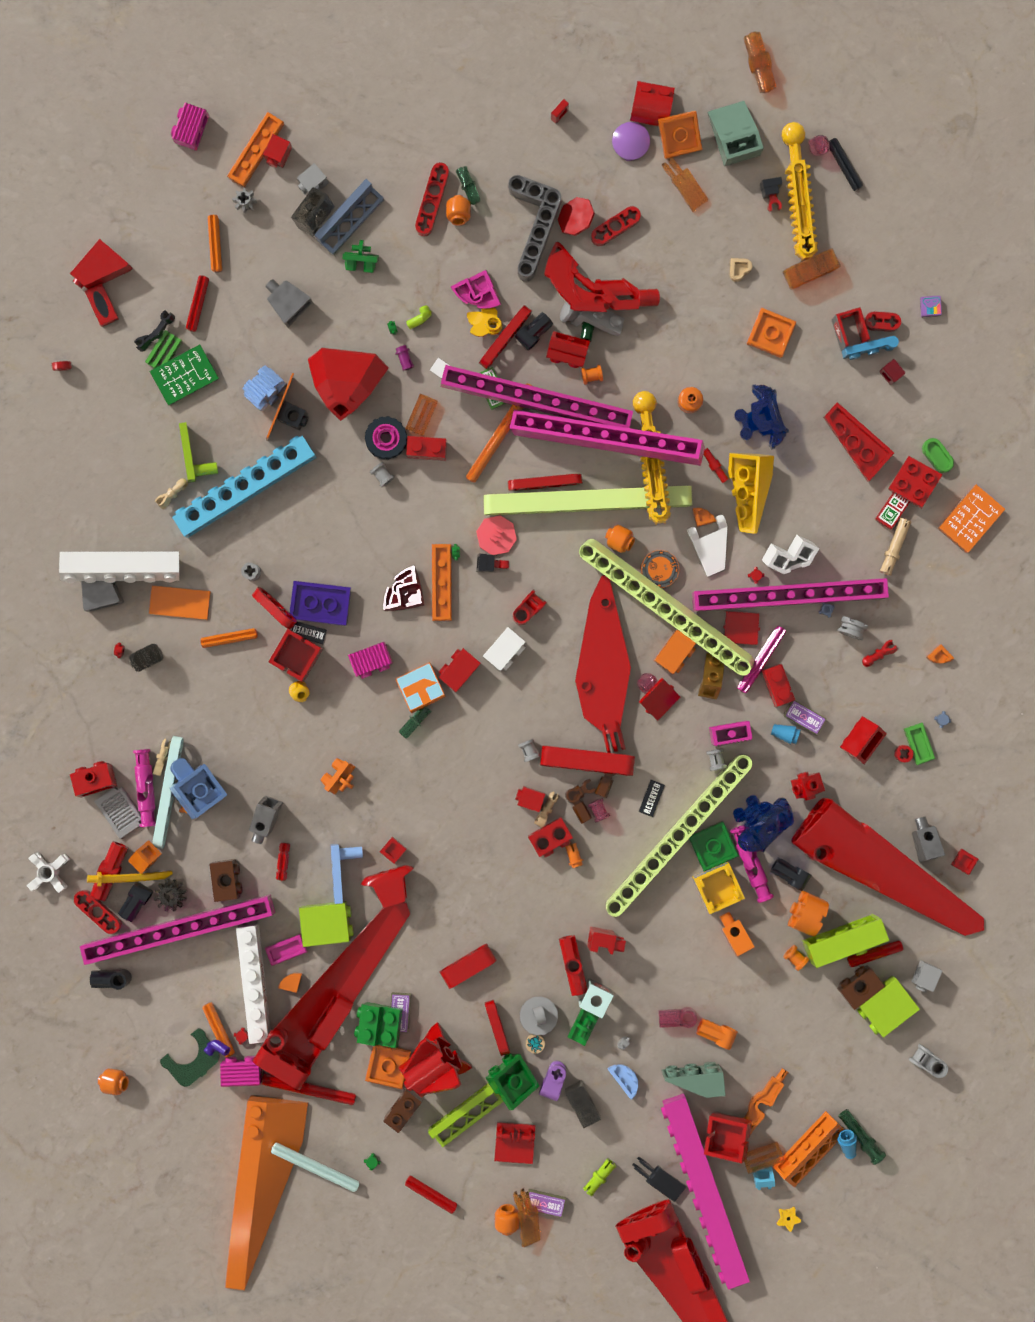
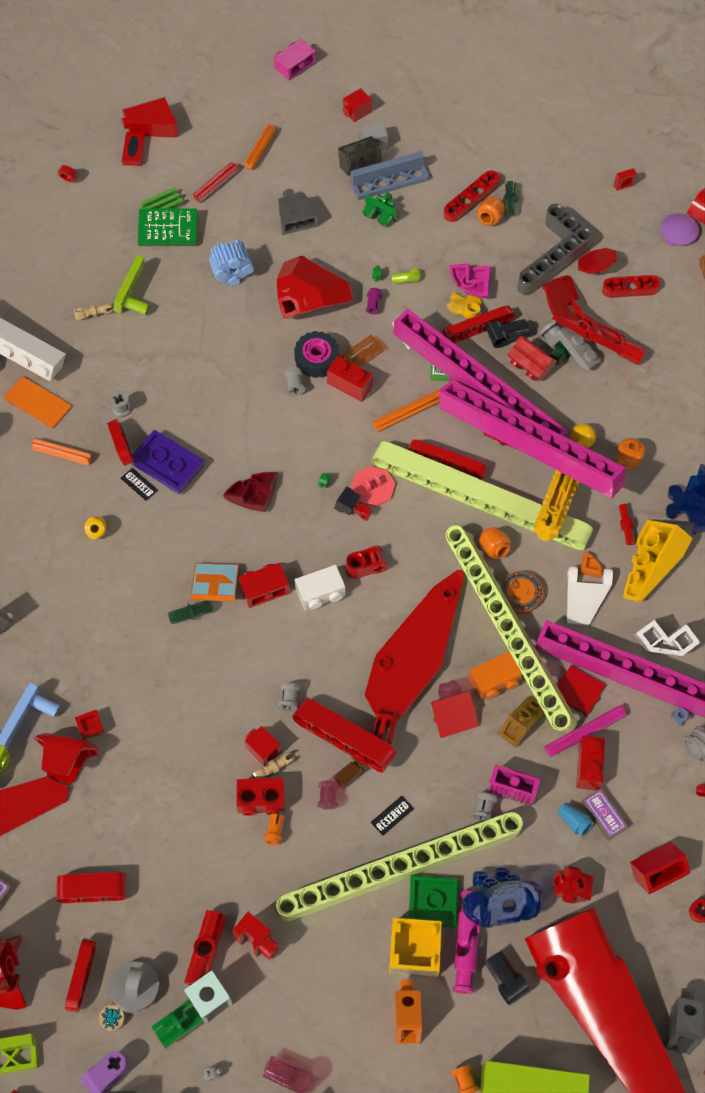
camera: 25 degrees right, 25 degrees down
(145, 341) = (149, 188): black piece -> none
(248, 203) = (306, 126): light grey gear -> none
(254, 150) = (334, 101): orange tile -> none
(255, 487) = (196, 333): medium azure brick -> none
(280, 406) = (235, 284): orange piece -> none
(285, 412) = (242, 298): black brick -> none
(295, 655) = (113, 491): red piece -> none
(341, 778) = (82, 625): orange hips -> none
(370, 659) = (182, 533): dark pink brick -> none
(441, 582) = (294, 501): orange tile -> none
(512, 1080) = (60, 1043): green plate -> none
(574, 795) = (309, 768): reddish brown bar -> none
(592, 374) = (543, 391): orange bush -> none
(756, 575) = (620, 643): red piece -> none
(808, 913) = (504, 1030): orange brick -> none

